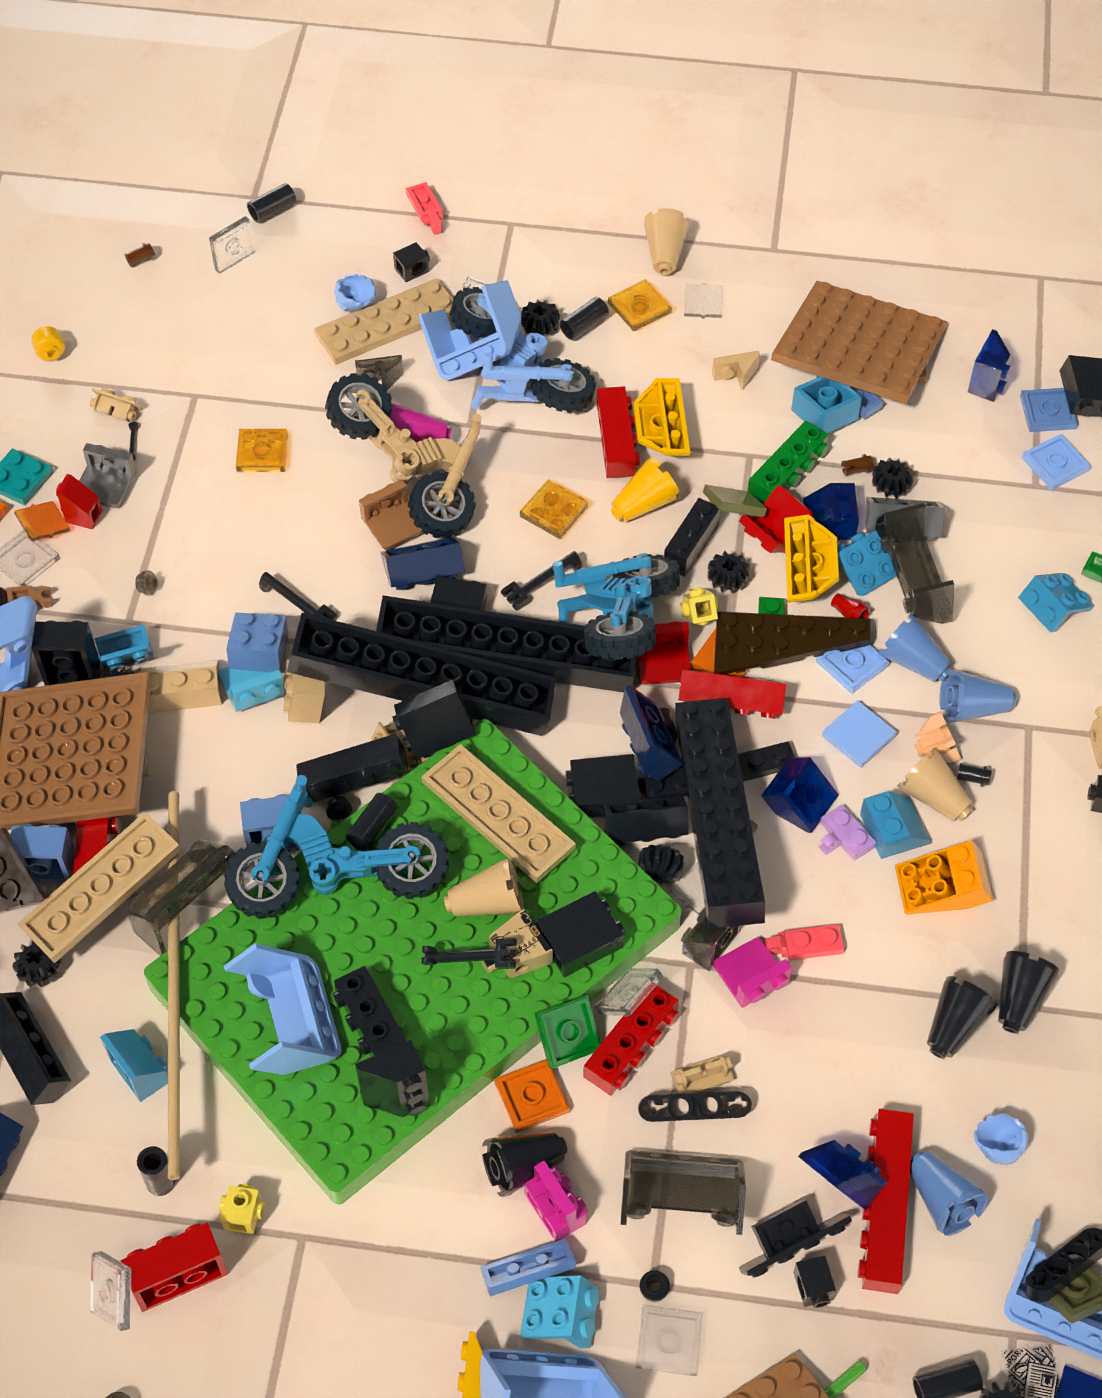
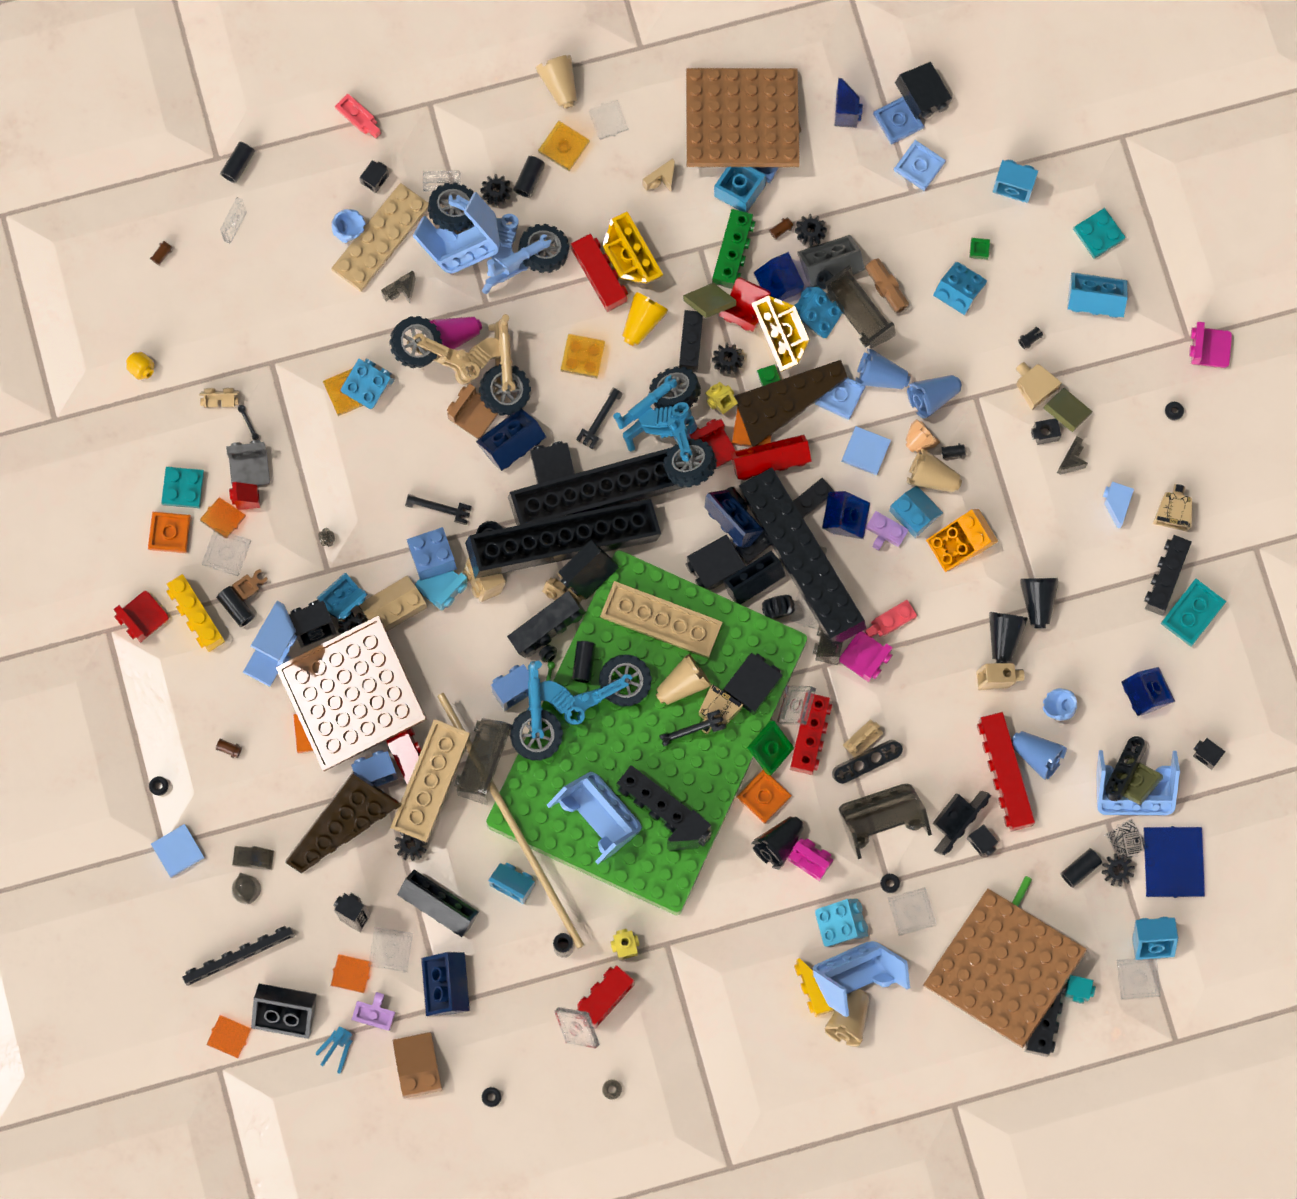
camera: 25 degrees left, 20 degrees up
(286, 443) = (366, 383): none -> dark azure bracket
(528, 1267) = (811, 905): medium blue plate -> none
(845, 1171) = (976, 768): clear blue slope -> none
(850, 607) = (823, 353): red cone -> none
(926, 1066) = (998, 676): none -> tan torso
(963, 565) = (886, 285): none -> medium nougat piece

